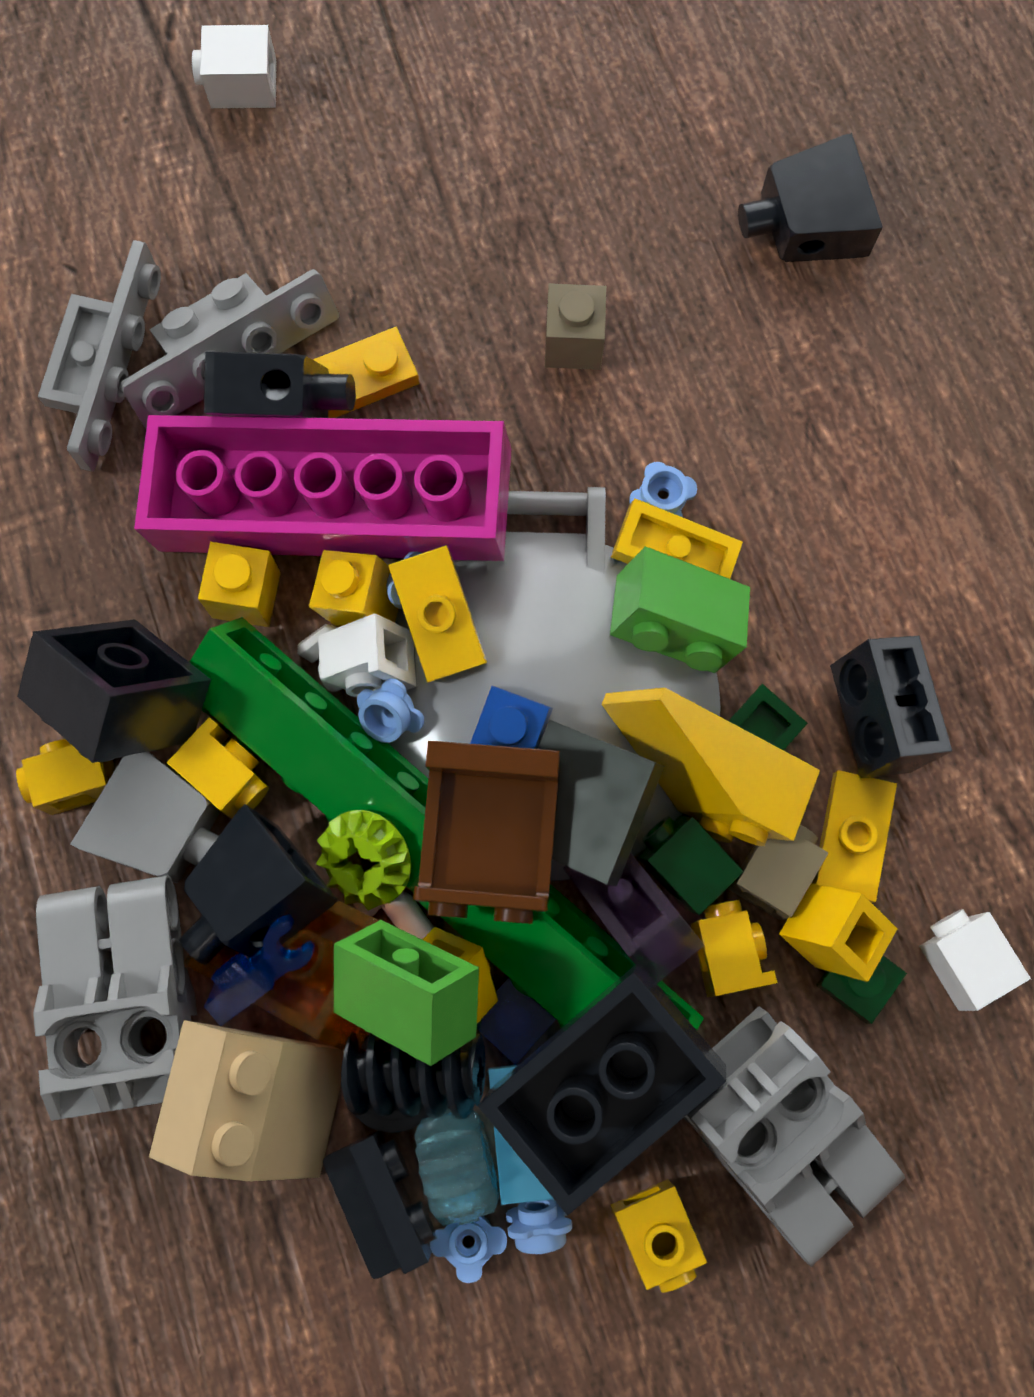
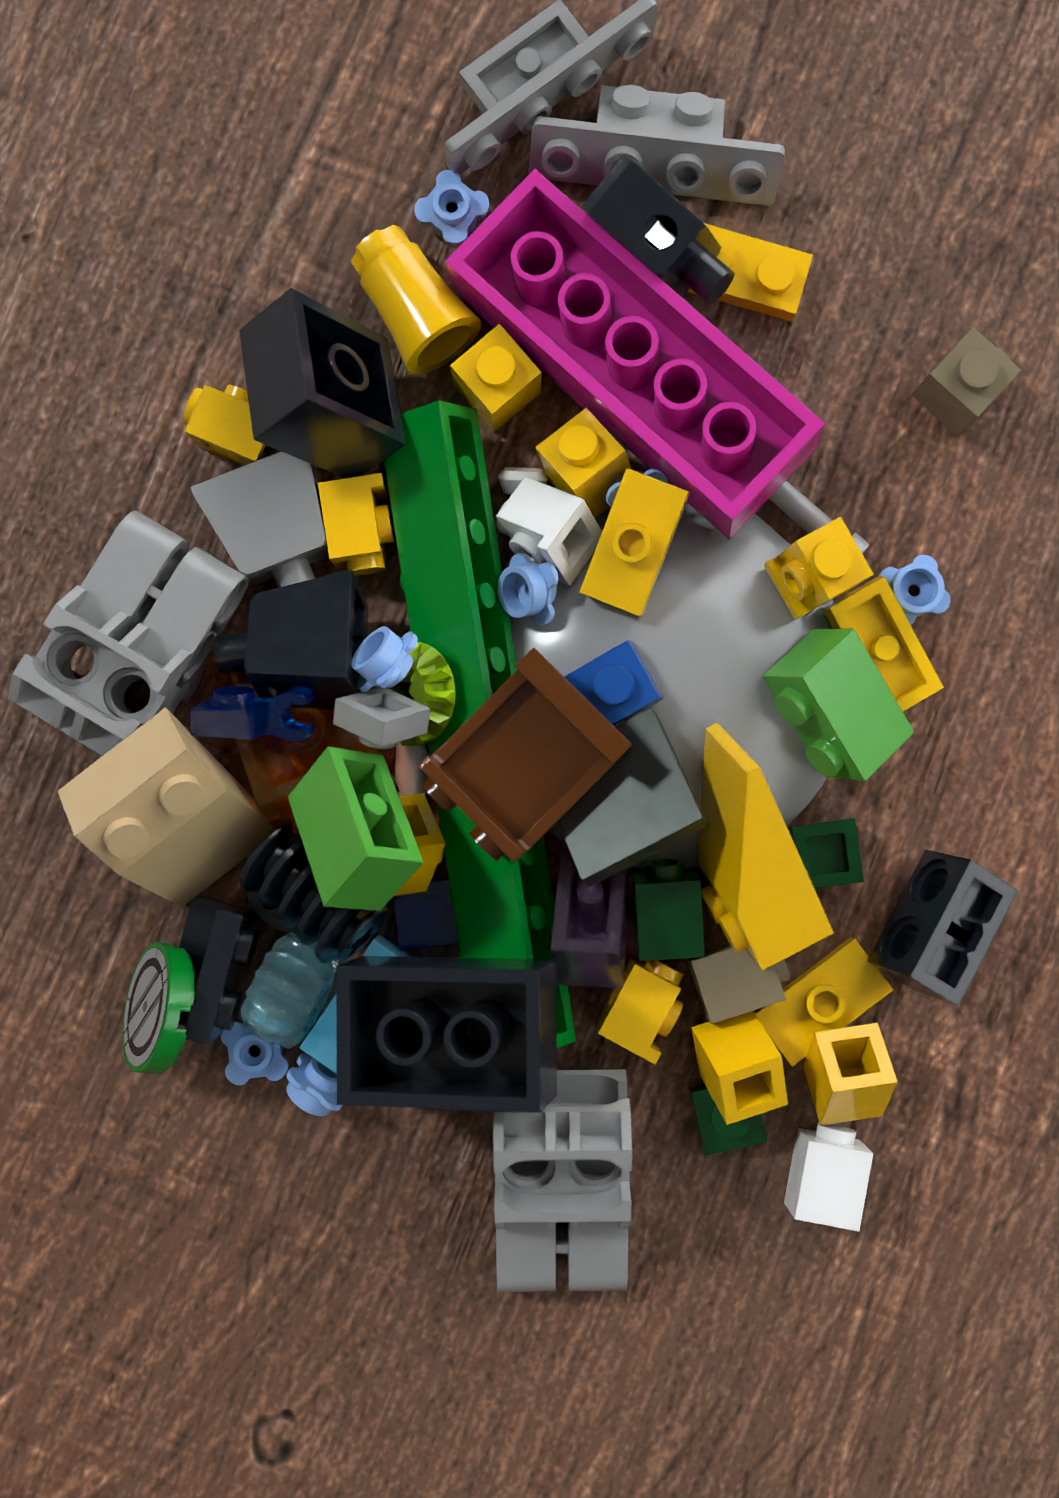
camera: 40 degrees right, 10 degrees up
(116, 508) = (457, 225): none -> light blue plate
(133, 578) = (413, 300): none -> yellow plant
(322, 846) = (383, 658): none -> light blue plate
(356, 891) = (381, 717): none -> light grey plate
(361, 1272) = (156, 995): none -> tile
(584, 527) = (818, 568): none -> yellow brick
(659, 1237) = (401, 1171): yellow brick -> none
(920, 869) = (849, 1074): none -> yellow brick

